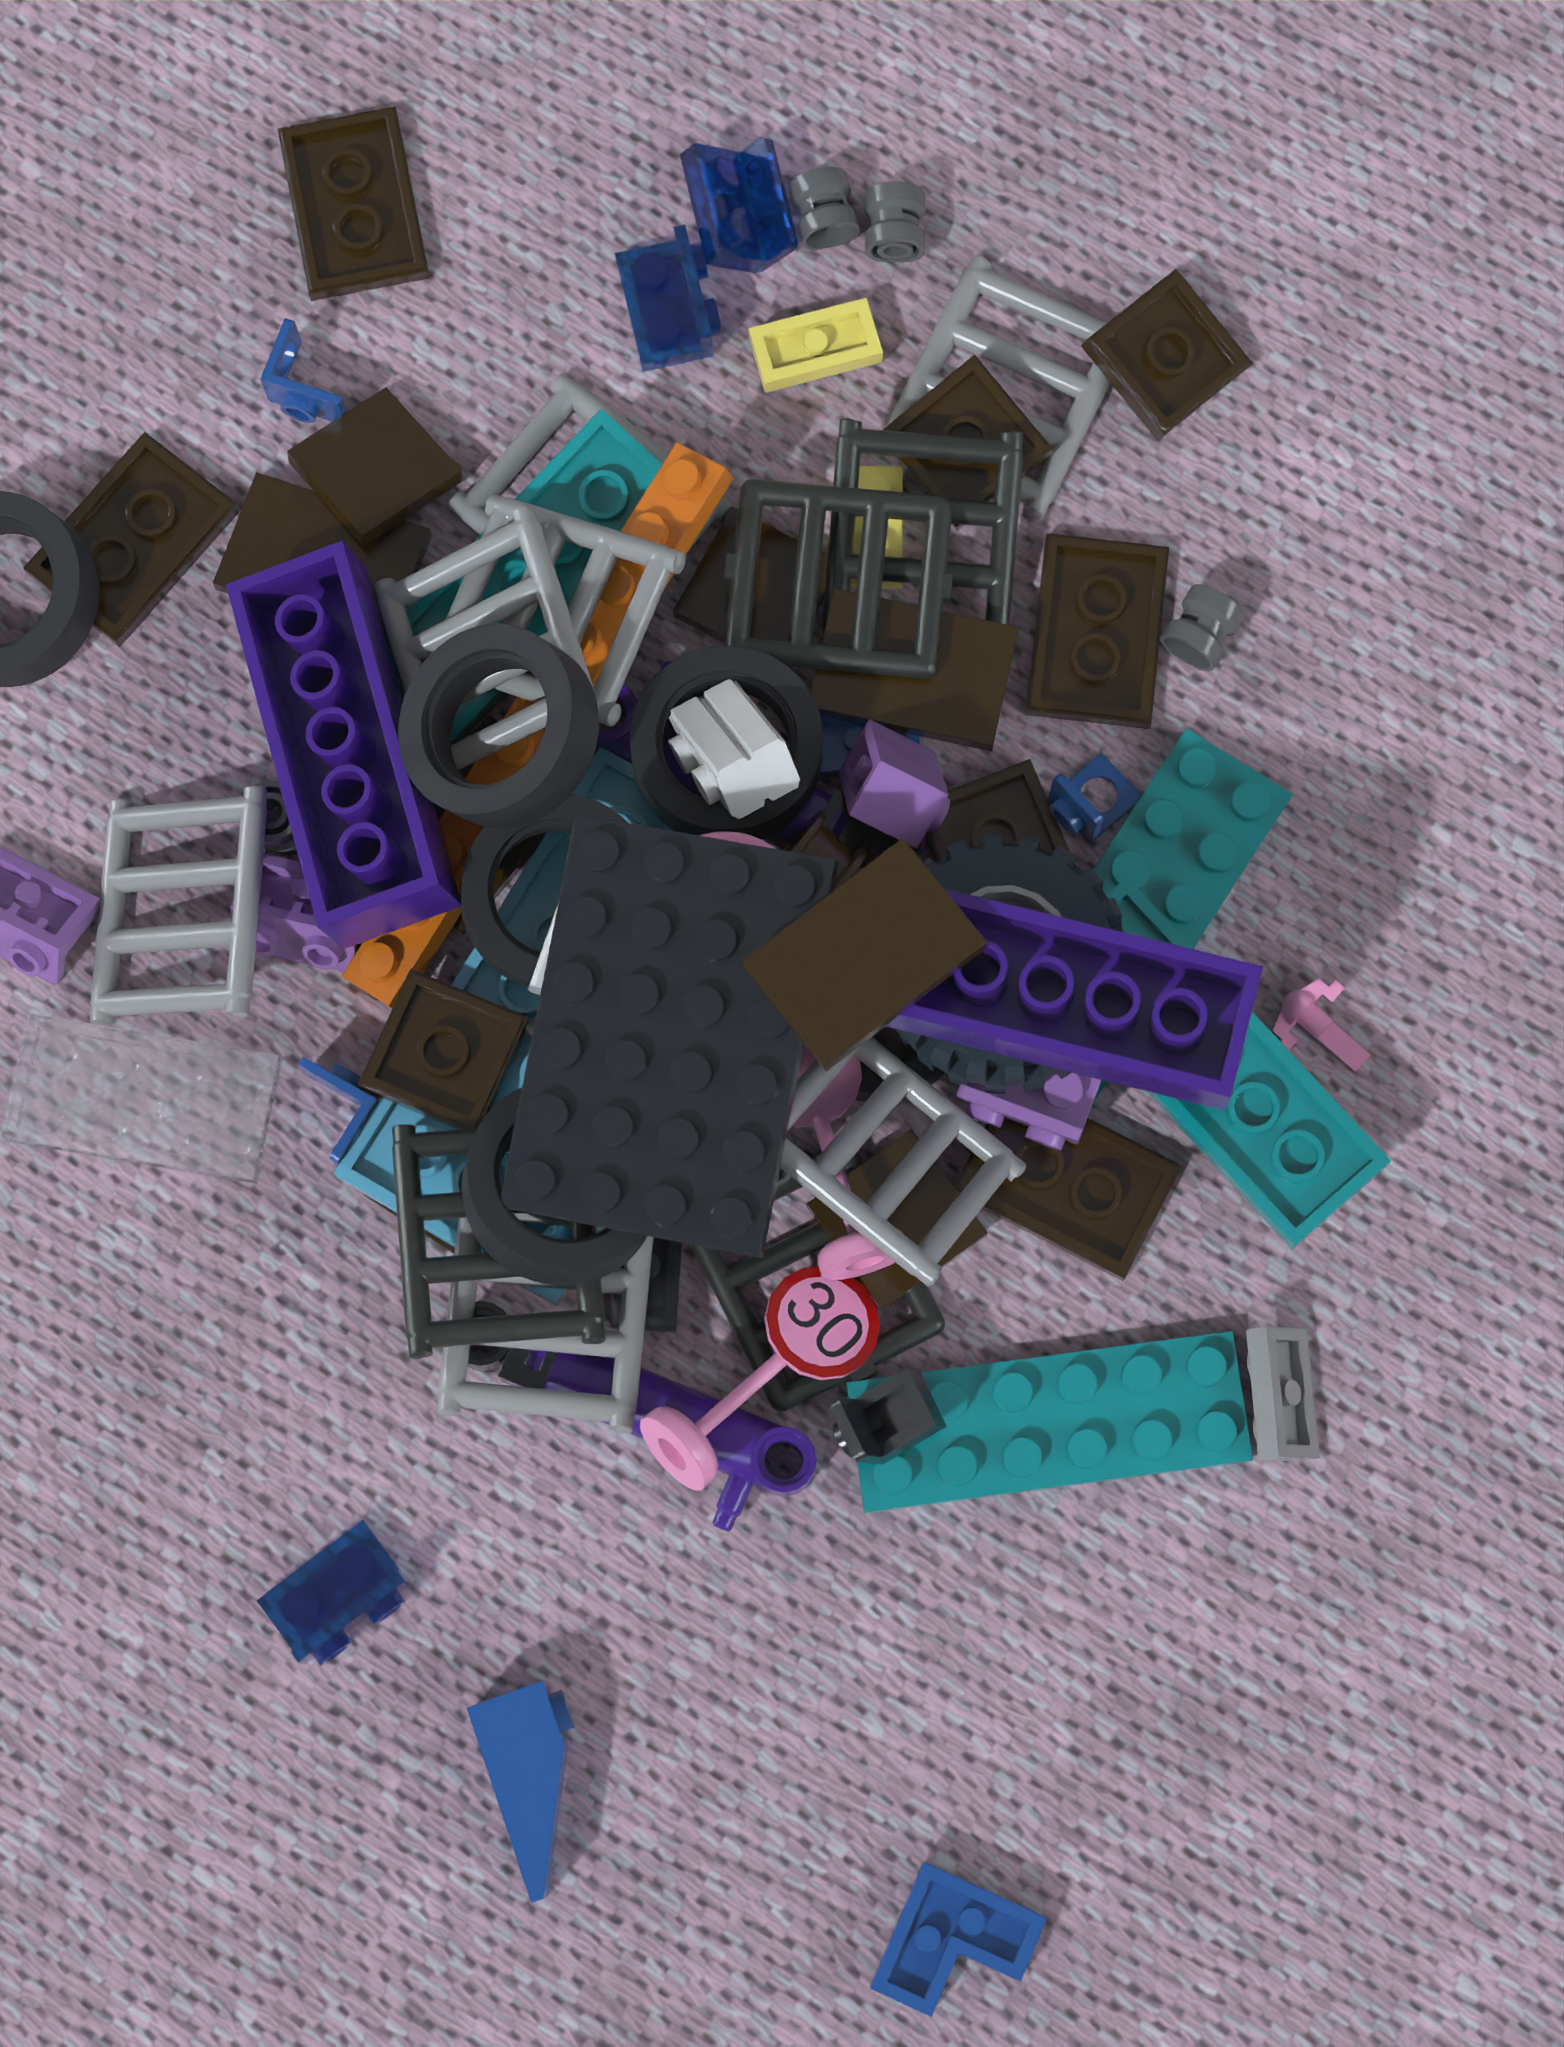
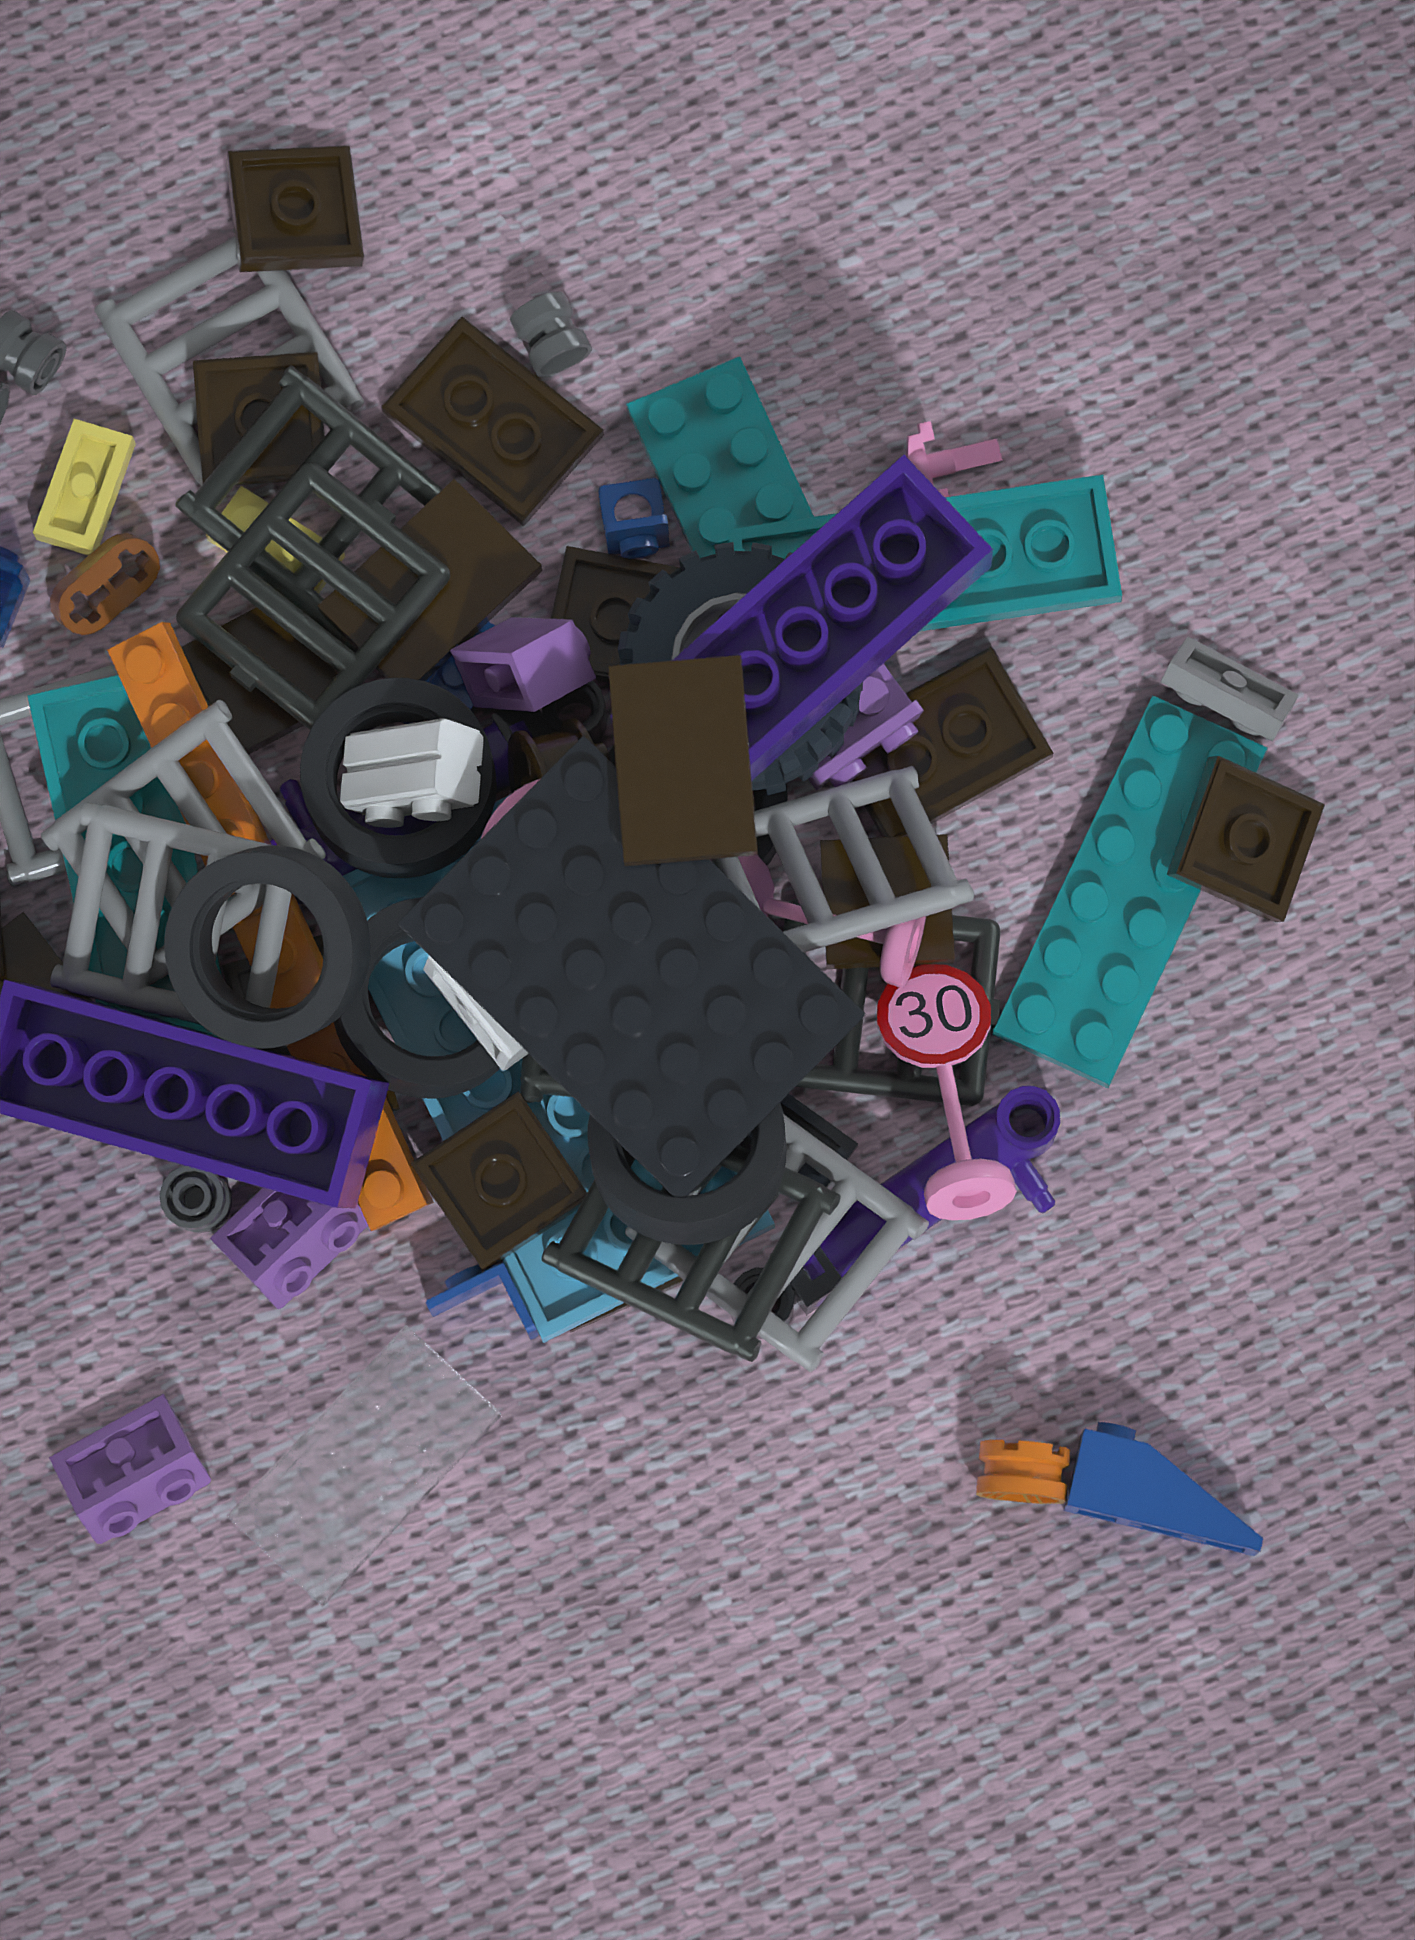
camera: 55 degrees left, 0 degrees up
(237, 934) = (285, 1285): light grey bar -> none
(334, 1594) = (897, 1563): clear blue bracket -> none
(475, 1651) = (1022, 1472): none -> orange wheel
(742, 427) = (114, 594): none -> dark orange beam
(886, 1418) = (1050, 1011): black bracket -> none
(1157, 1492) = (1246, 839): none -> dark brown tile

